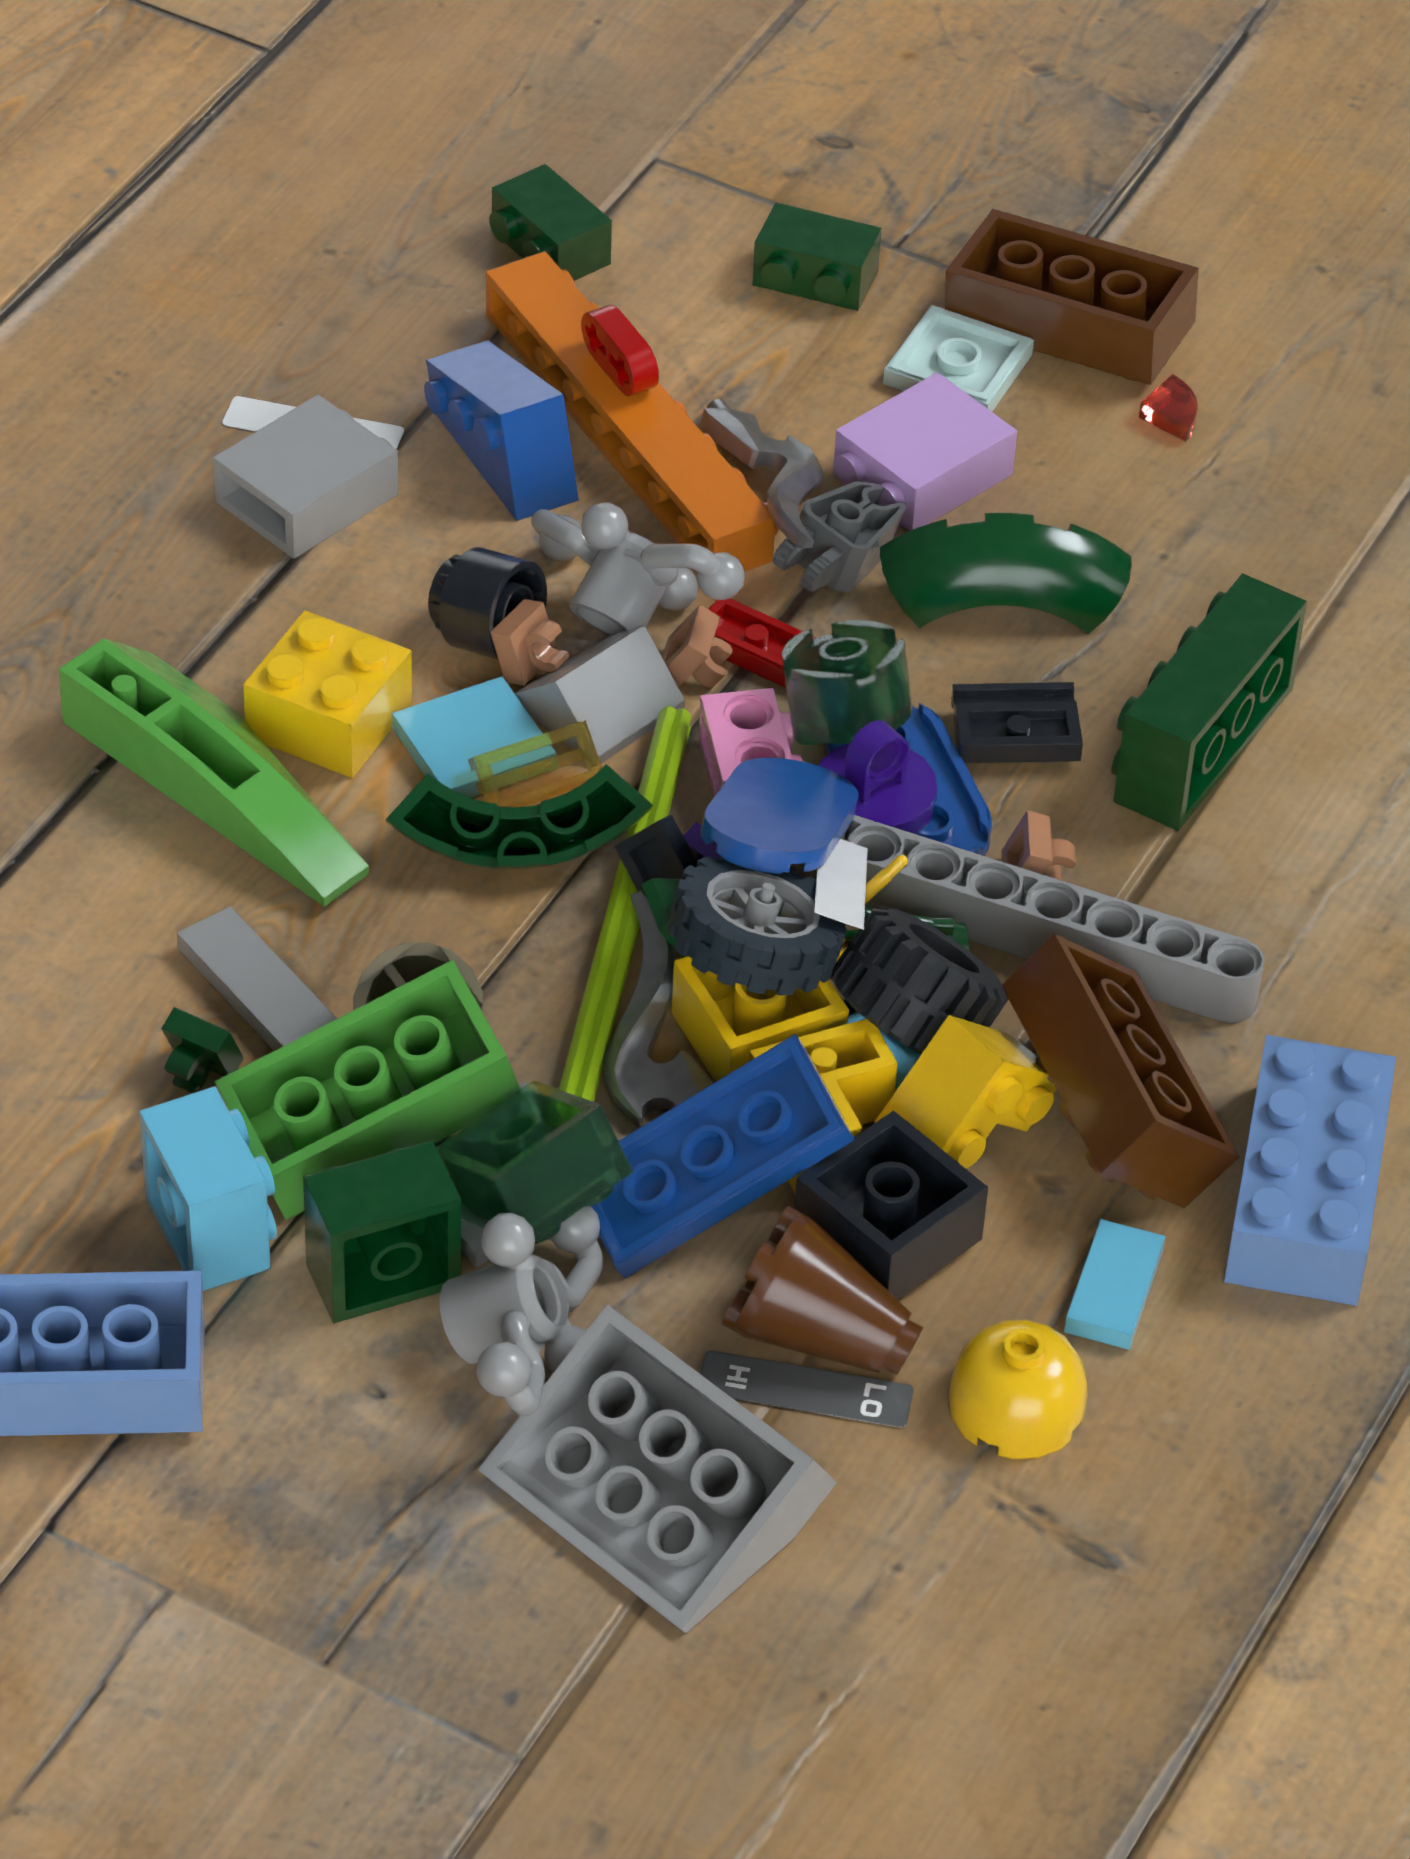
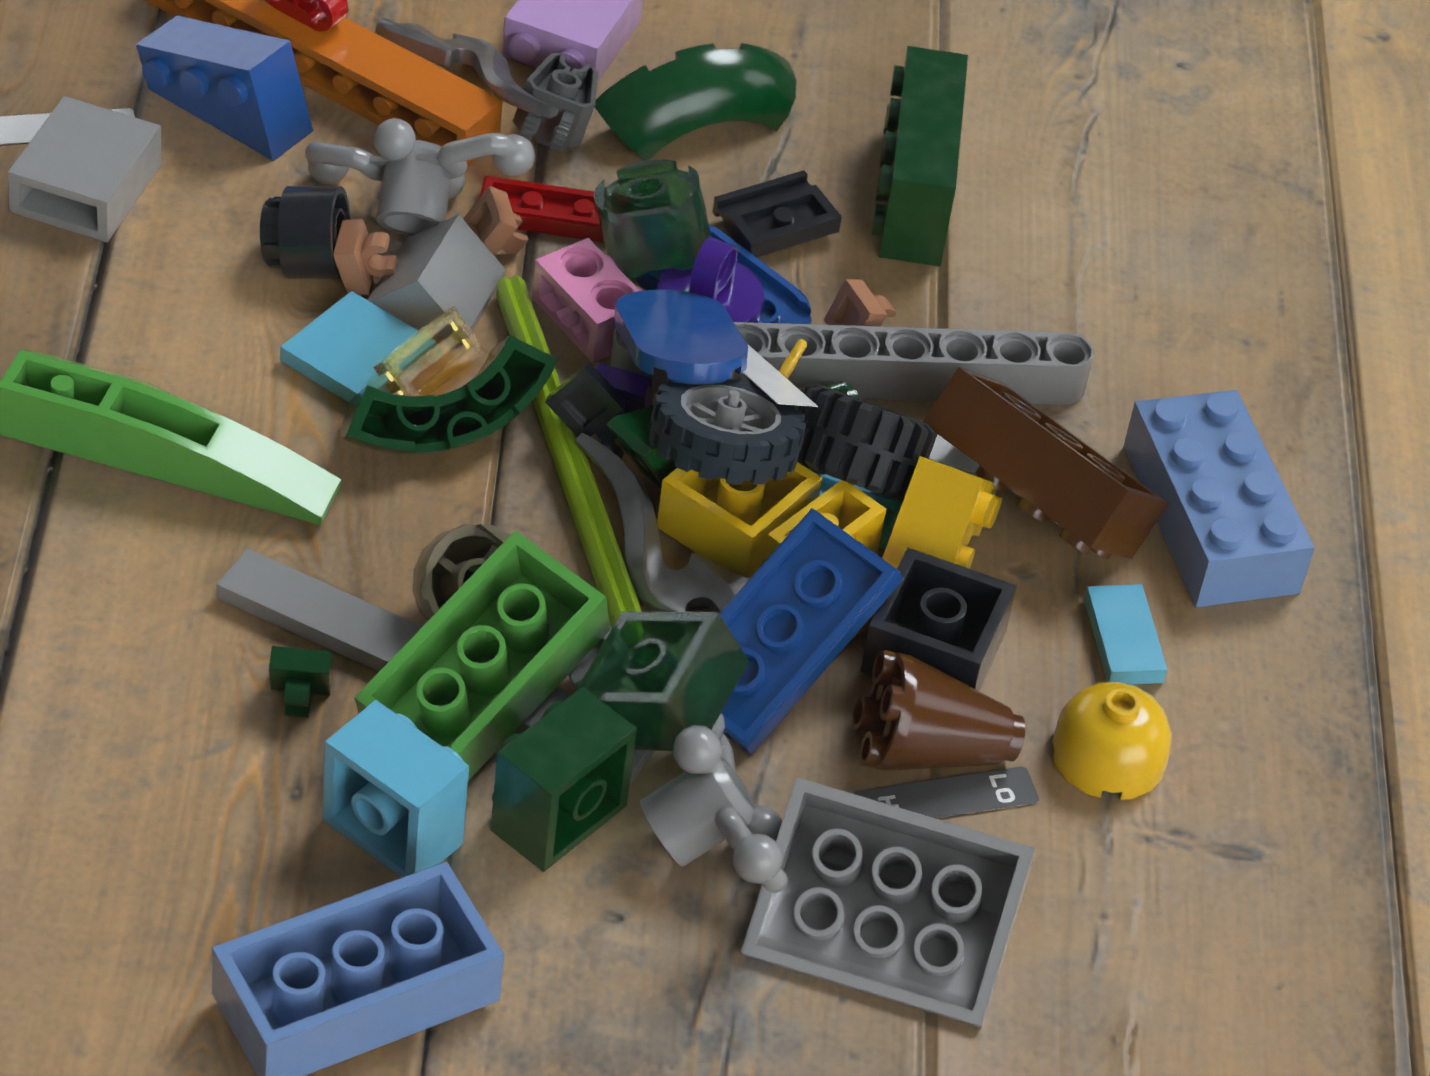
camera: 30 degrees left, 0 degrees up
(328, 693) = (222, 344): yellow brick -> none

